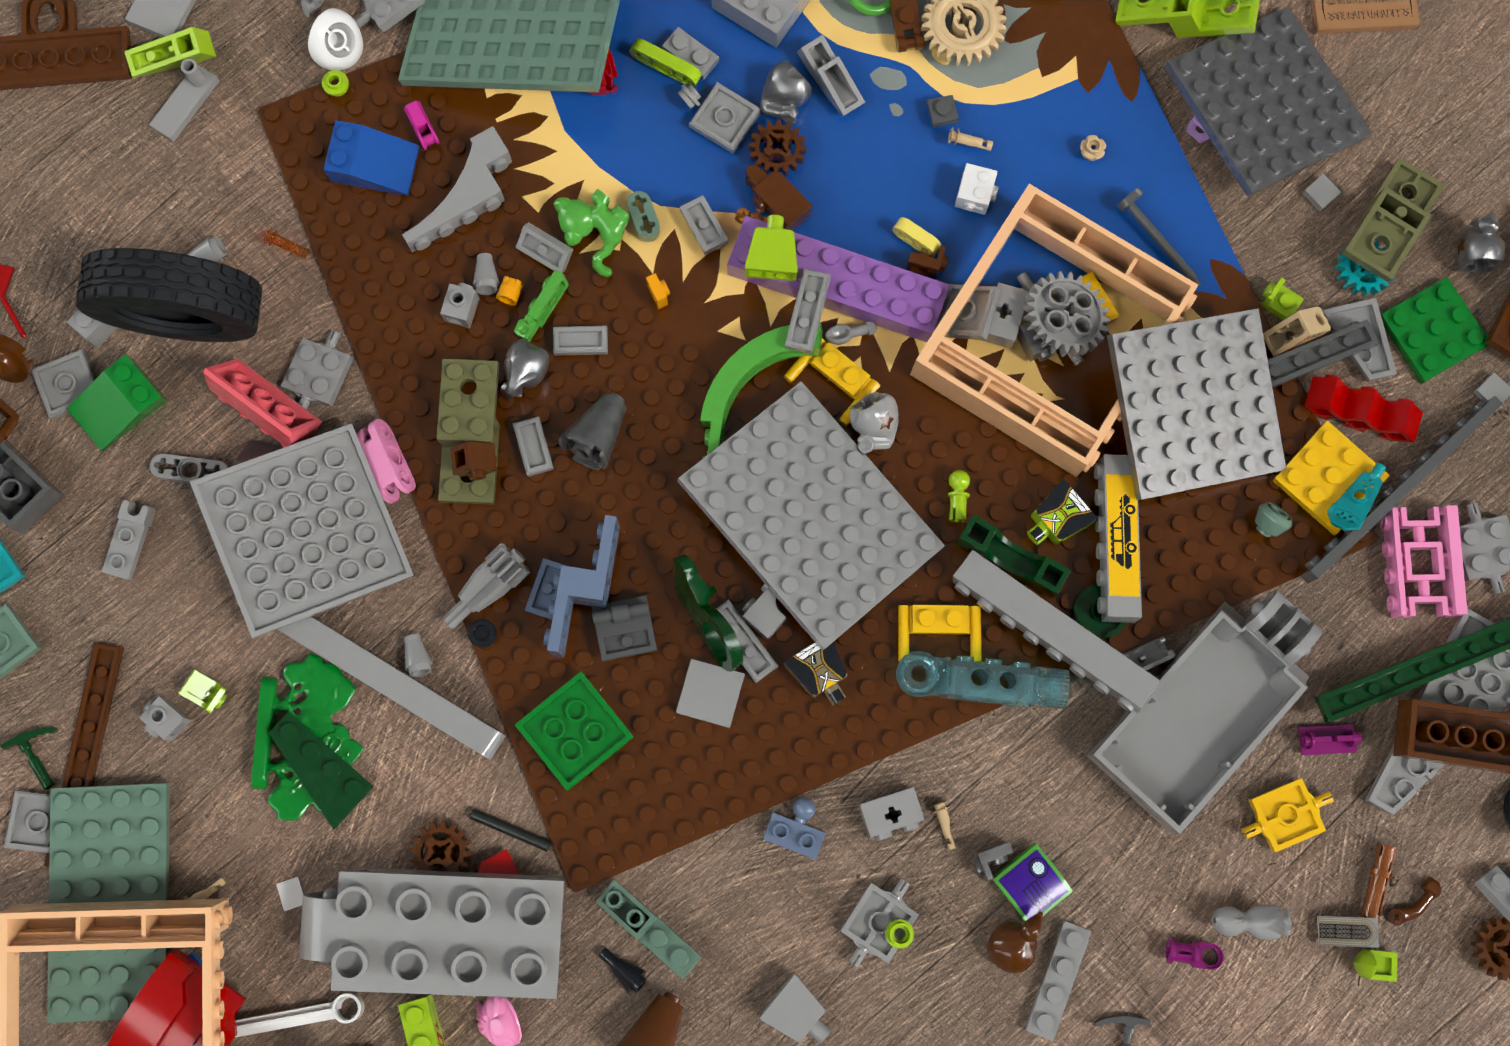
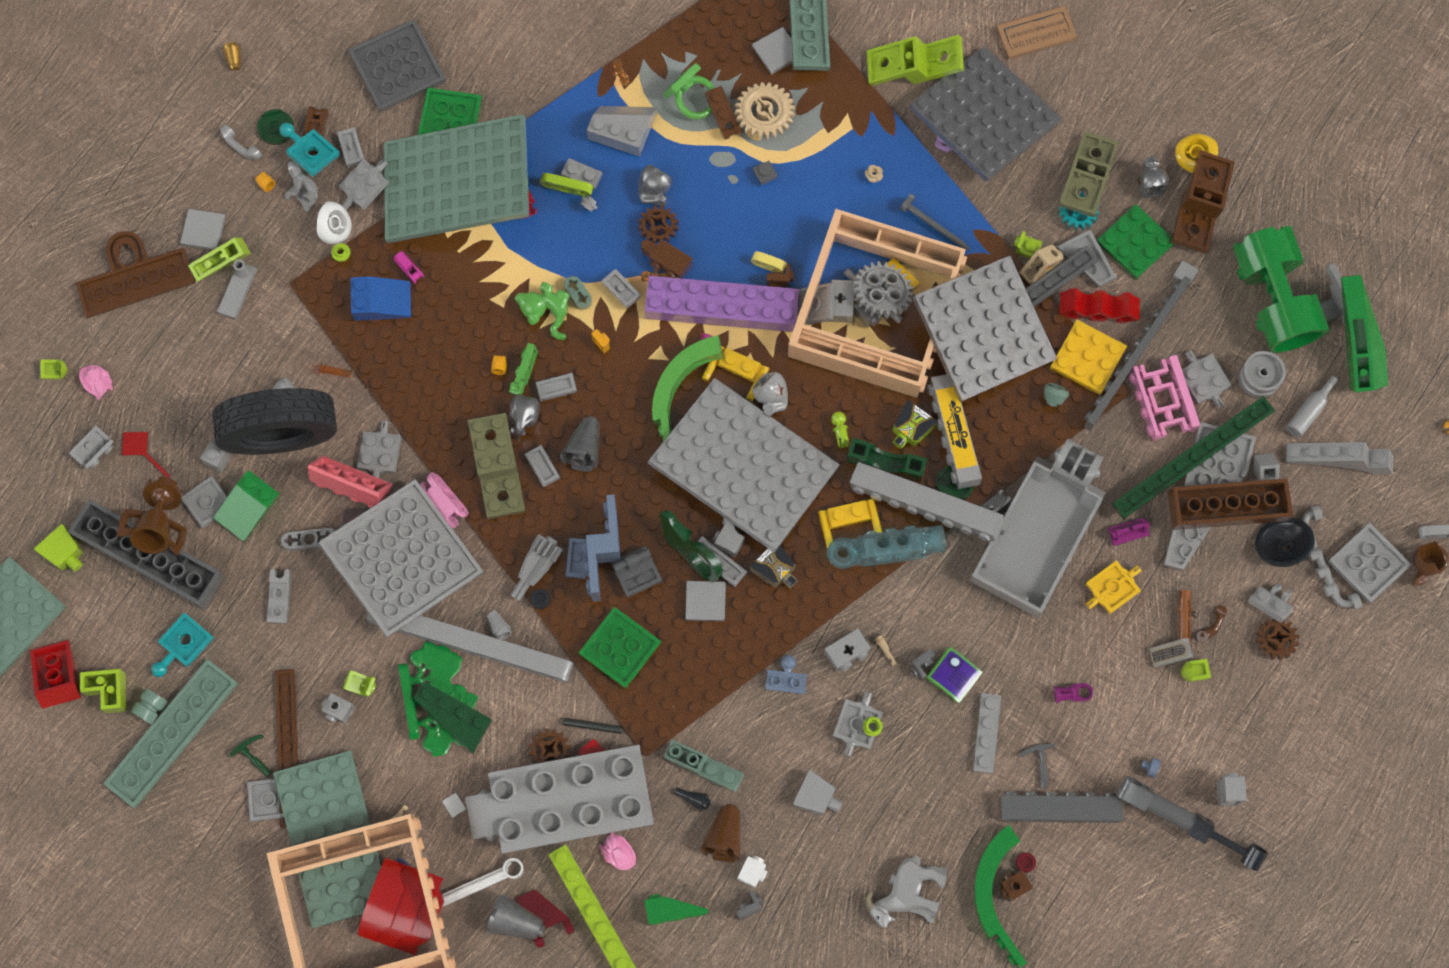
camera: 10 degrees left, 5 degrees down
(460, 305) = (467, 382): light grey brick -> none
(471, 195) = (457, 305): light grey arch -> none
(473, 459) = (506, 482): reddish brown brick -> none
(485, 275) = (479, 358): light grey cone -> none
(544, 248) = (515, 330): light grey plate -> none
(725, 118) = (616, 212): light grey tile -> none
(772, 252) = (674, 296): lime torso -> none
(807, 311) = (707, 329): light grey tile -> none
(831, 75) = (682, 167): light grey slope -> none
(842, 333) = (734, 340): light grey piece -> none
(957, 137) = (787, 188): tan piece -> none
(976, 189) = (801, 220): white head -> none
(1014, 944) = (951, 715): reddish brown hair -> none
(1260, 921) = (1111, 660): light grey animal -> none
(1321, 192) = (1037, 167): light grey tile -> none
(1354, 507) = (1108, 372): teal piece -> none

